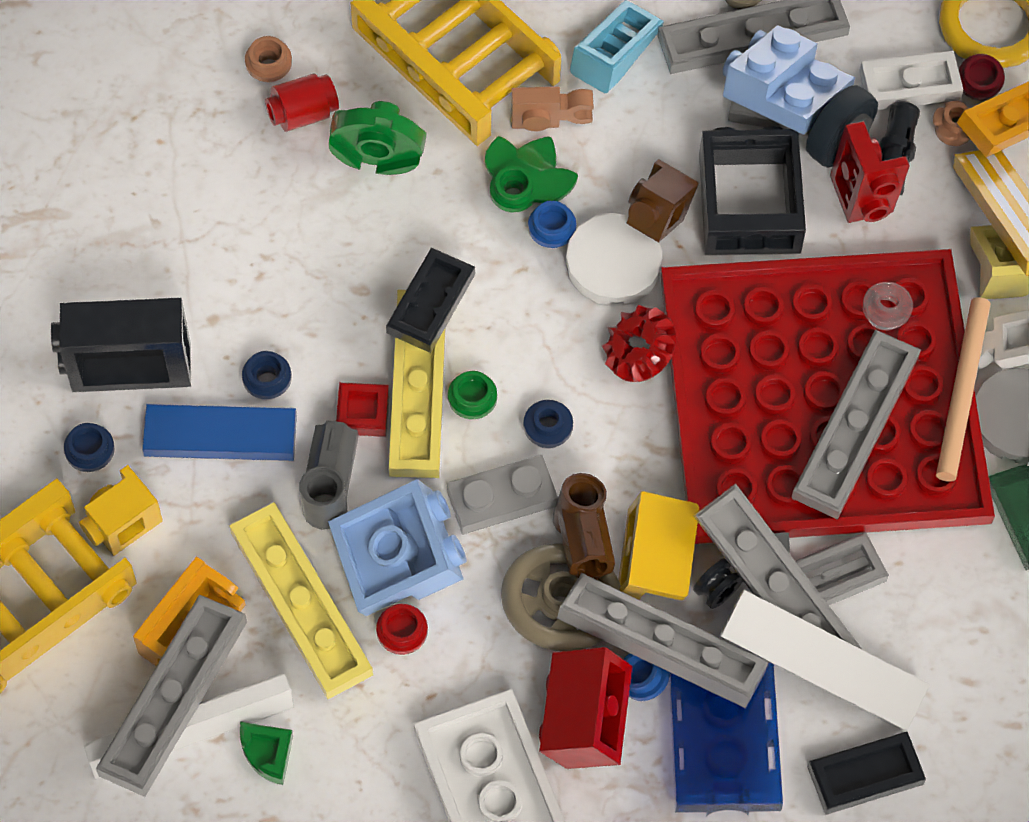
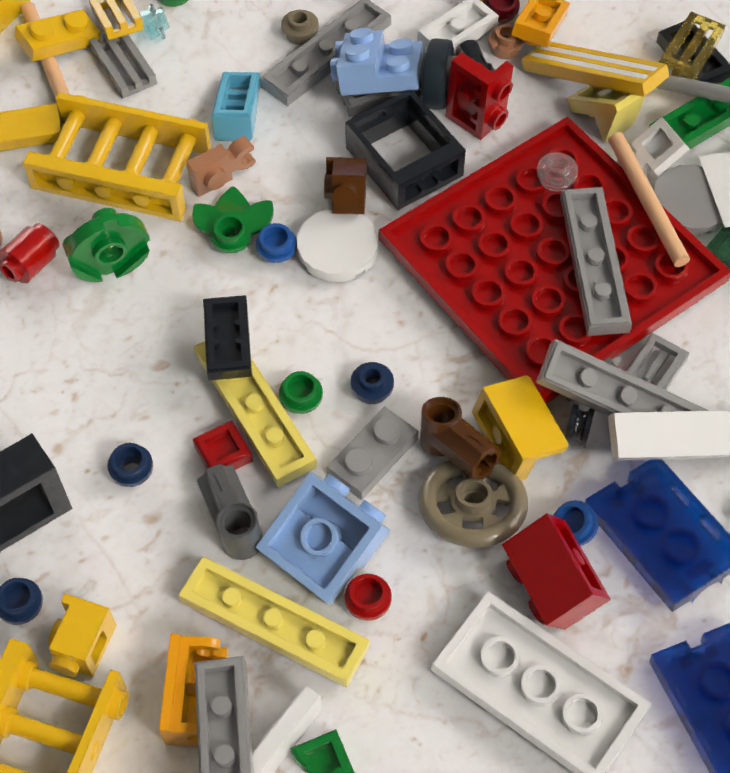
camera: 30 degrees left, 5 degrees down
(219, 432) = (120, 529): blue tile -> none
(640, 363) = (411, 301): red gear -> none
(663, 640) = (575, 486): light grey tile -> none

